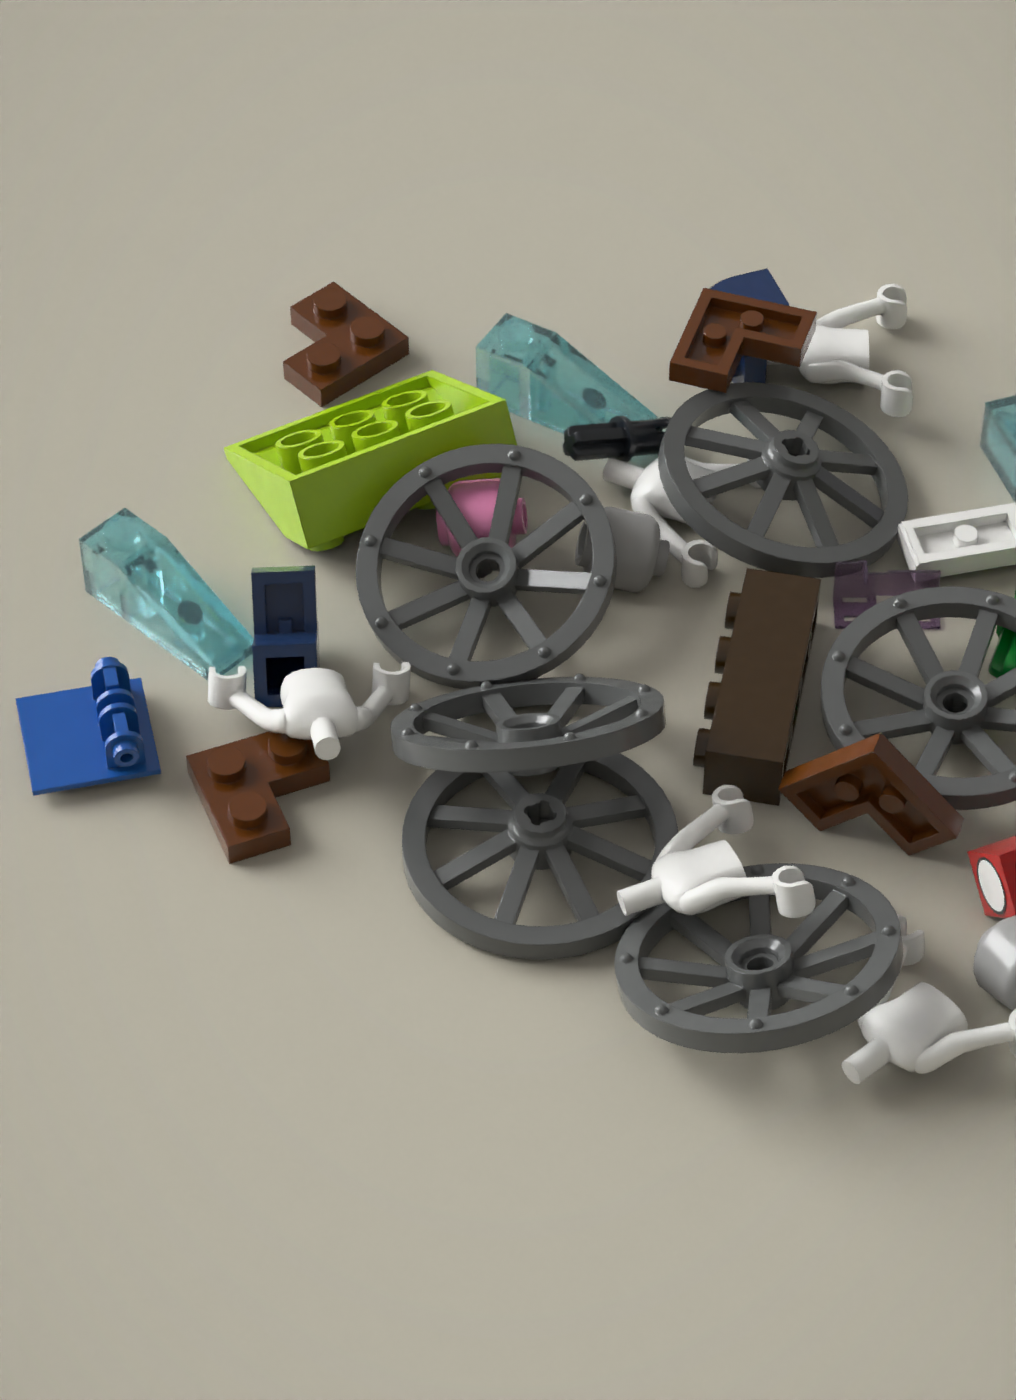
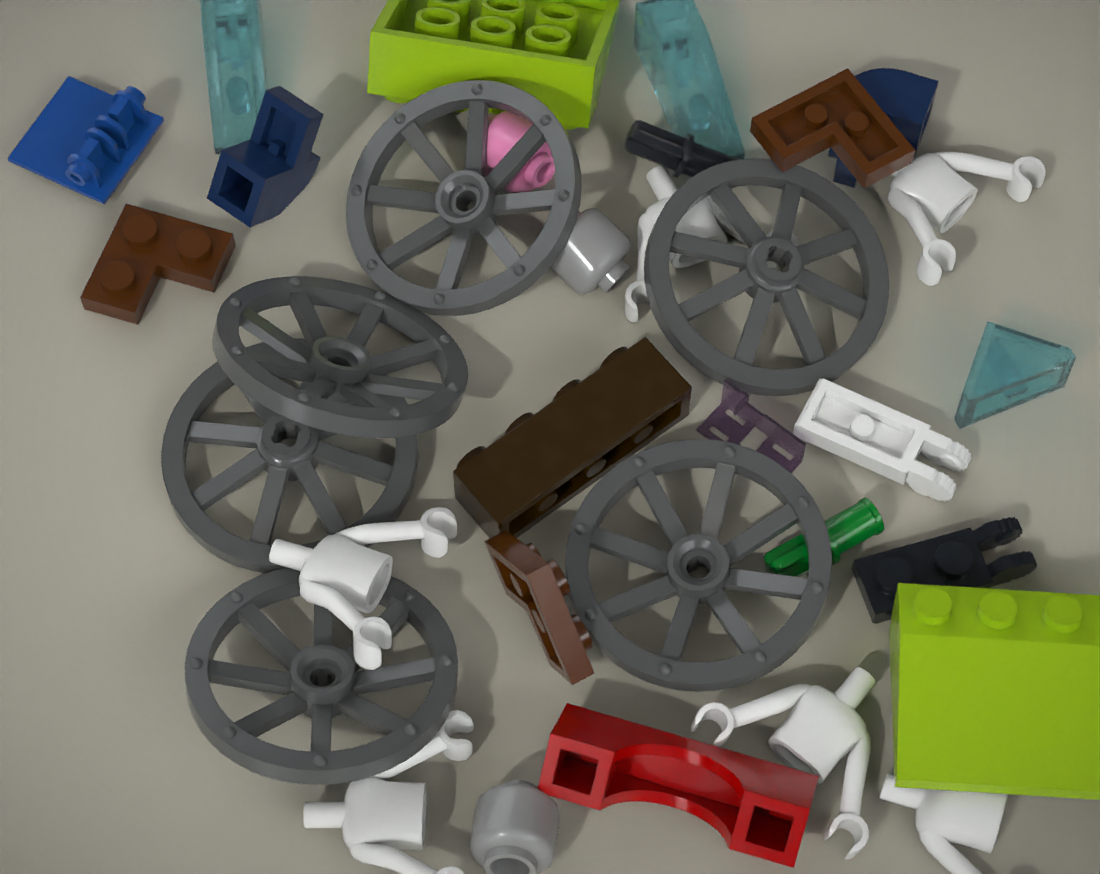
camera: 40 degrees right, 15 degrees up
(313, 703) = (235, 228): white piece -> none

